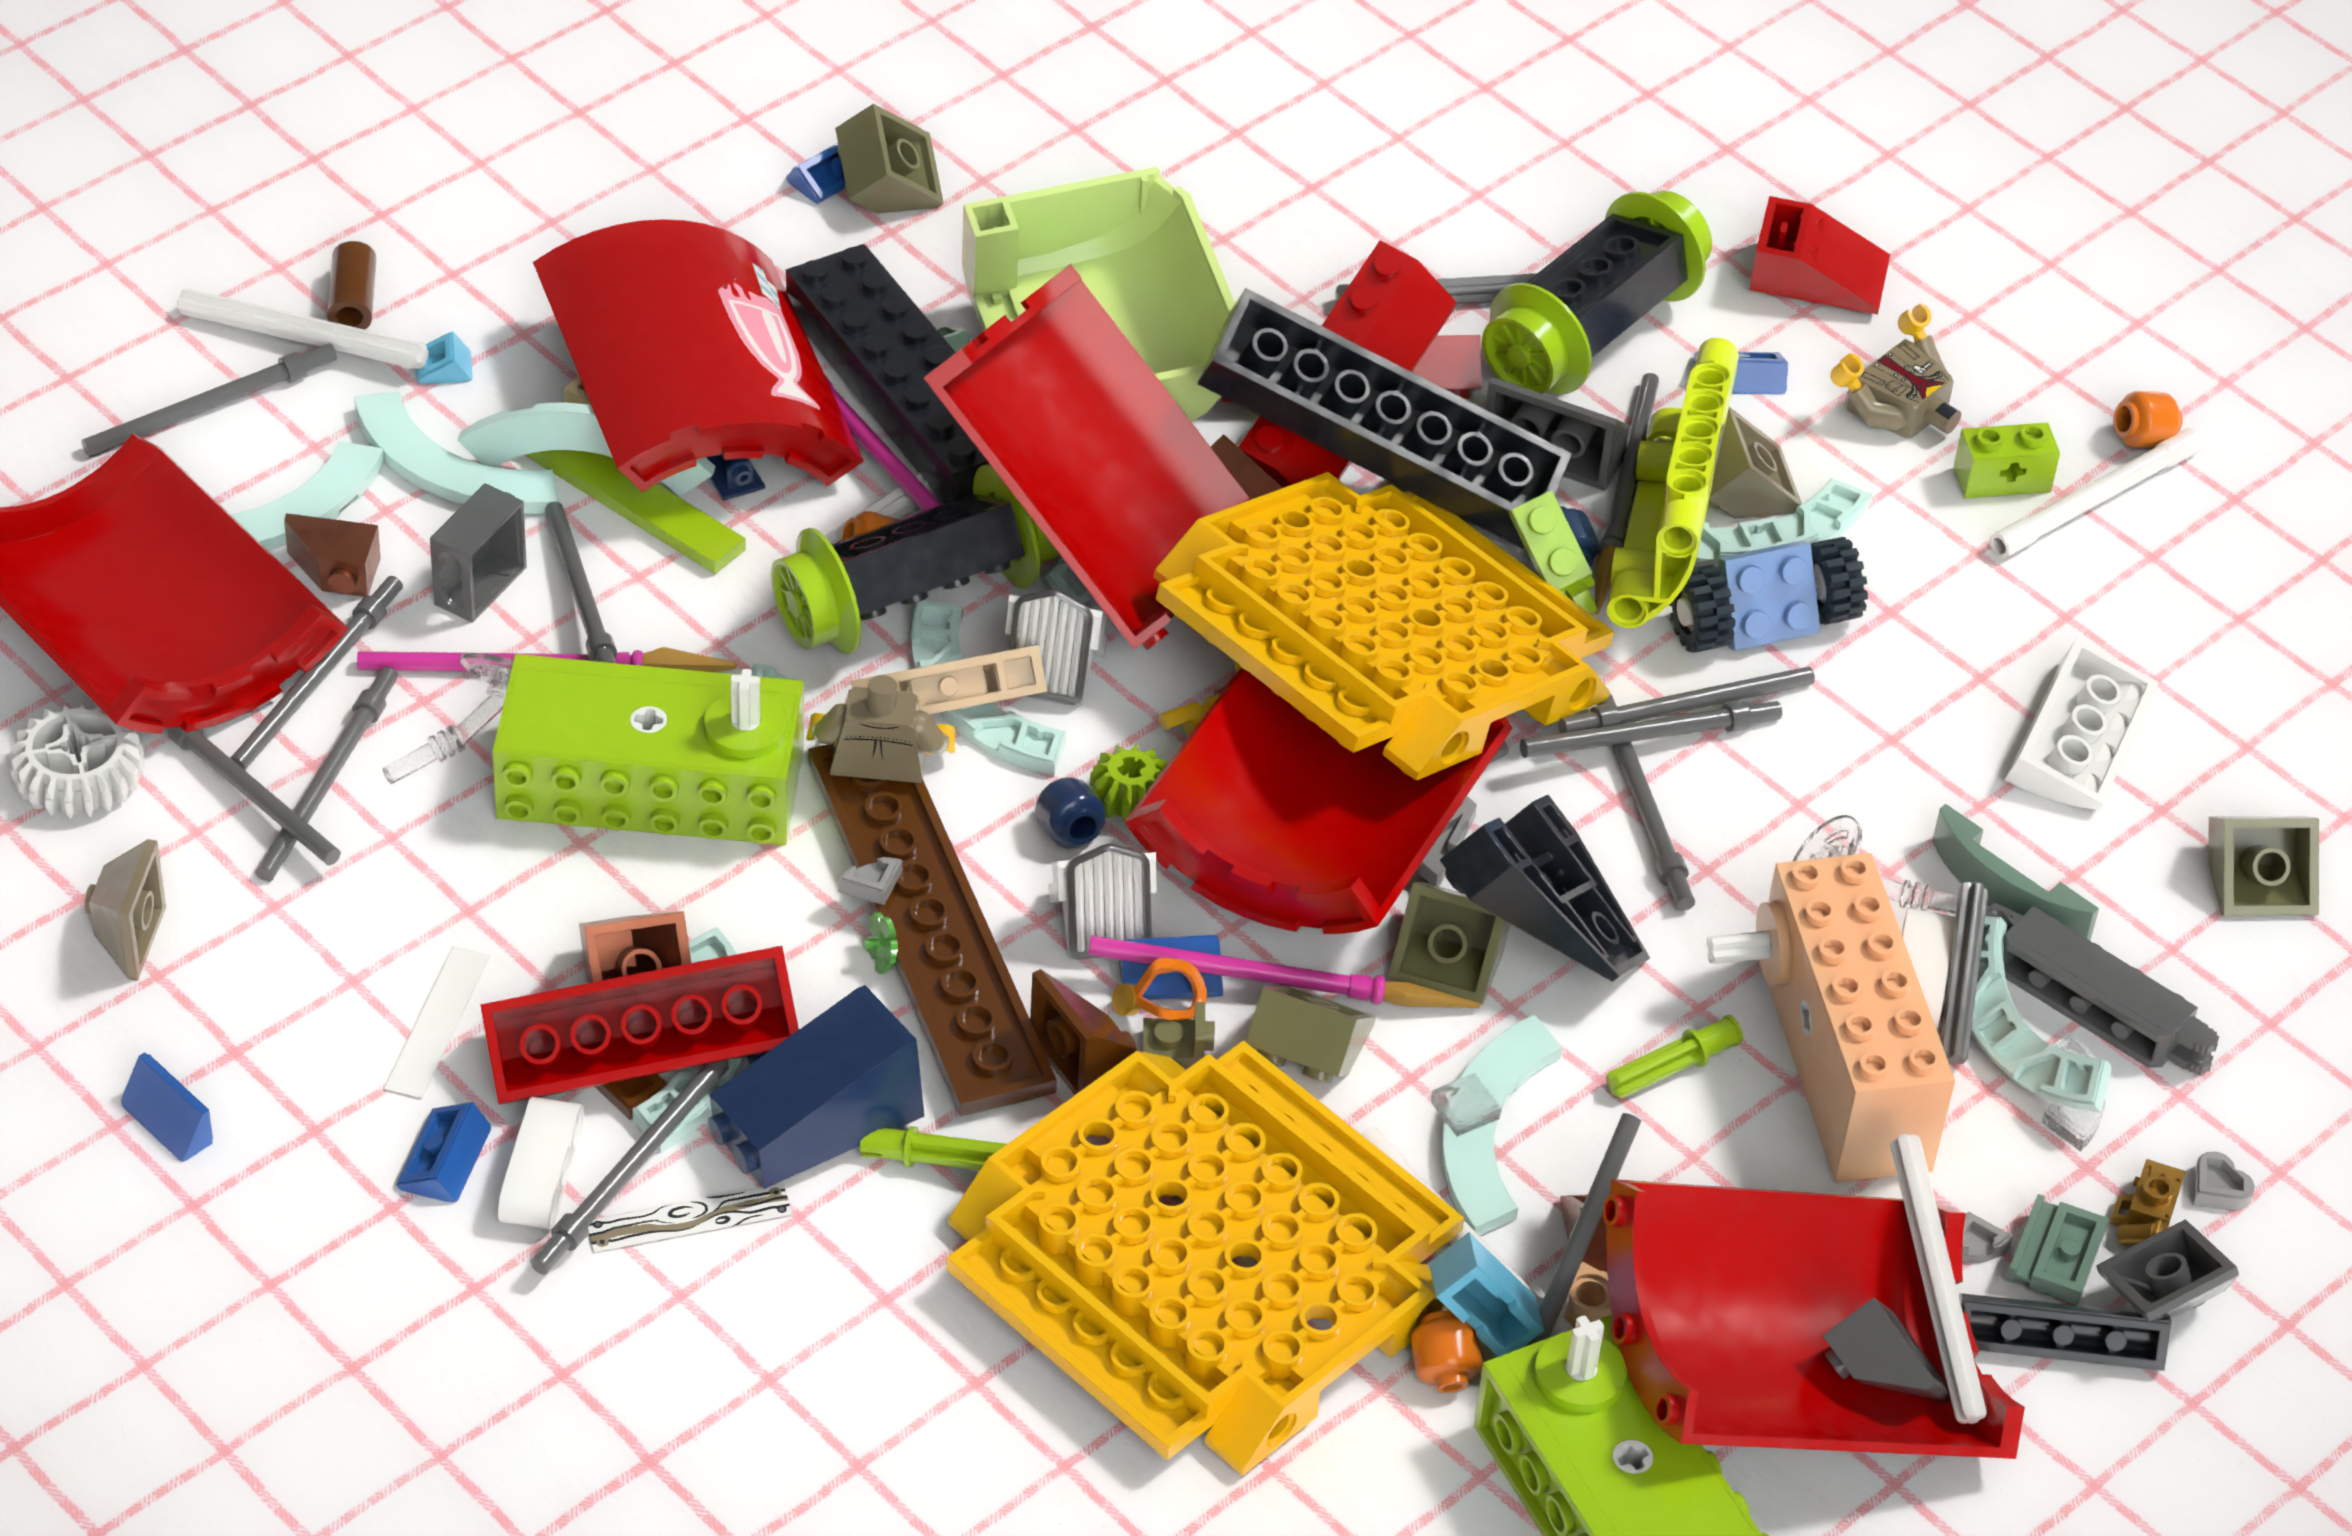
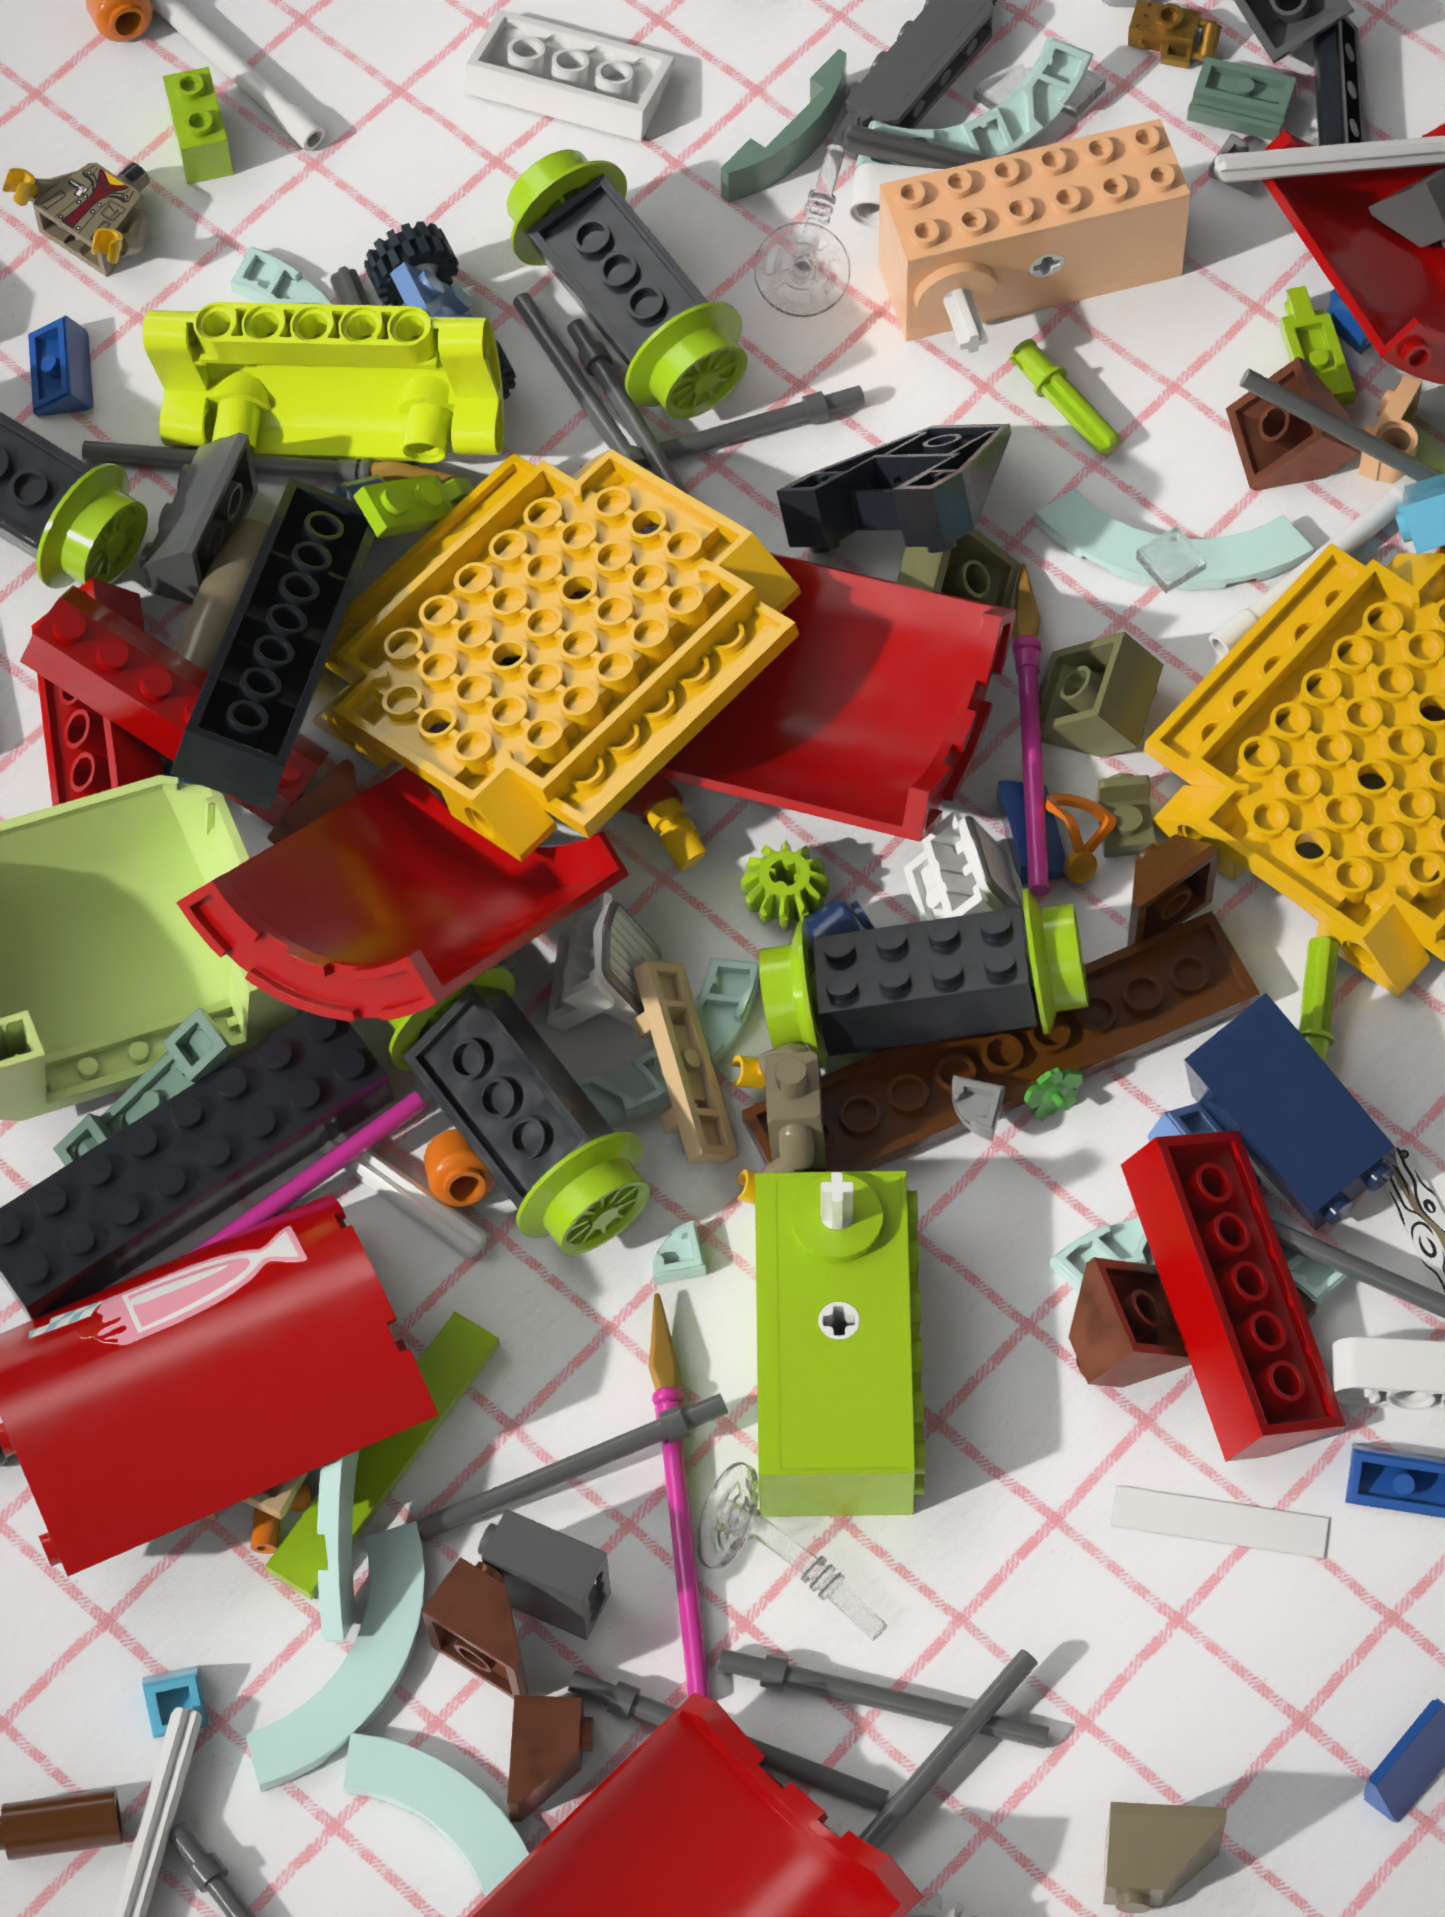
camera: 90 degrees left, 15 degrees up
(426, 500) = (475, 1626): none -> copper slope
(987, 866) = (924, 980): none -> black brick
(1794, 708) = (663, 328): none -> brick

